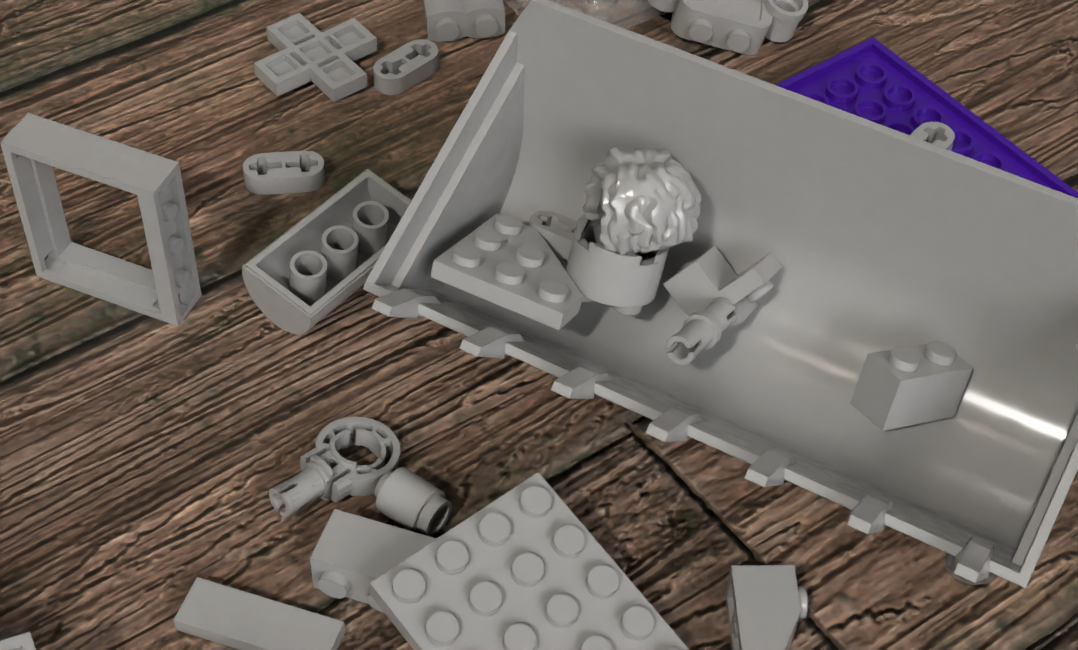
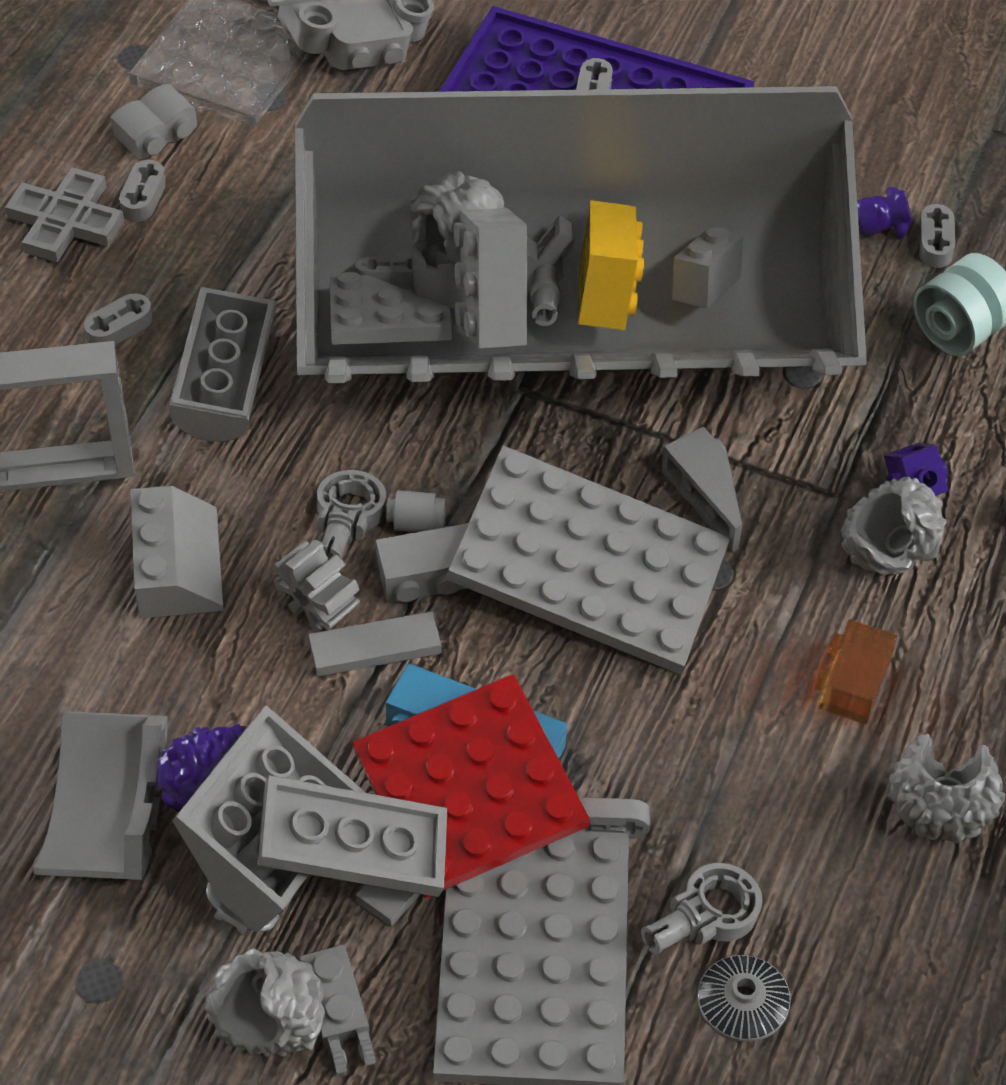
camera: 30 degrees left, 5 degrees up
(136, 419) = (175, 553): none -> light grey slope
(234, 526) = (316, 585): none -> light grey gear
(620, 276) = (492, 277): none -> light grey brick
(788, 329) = (609, 265): none -> yellow brick

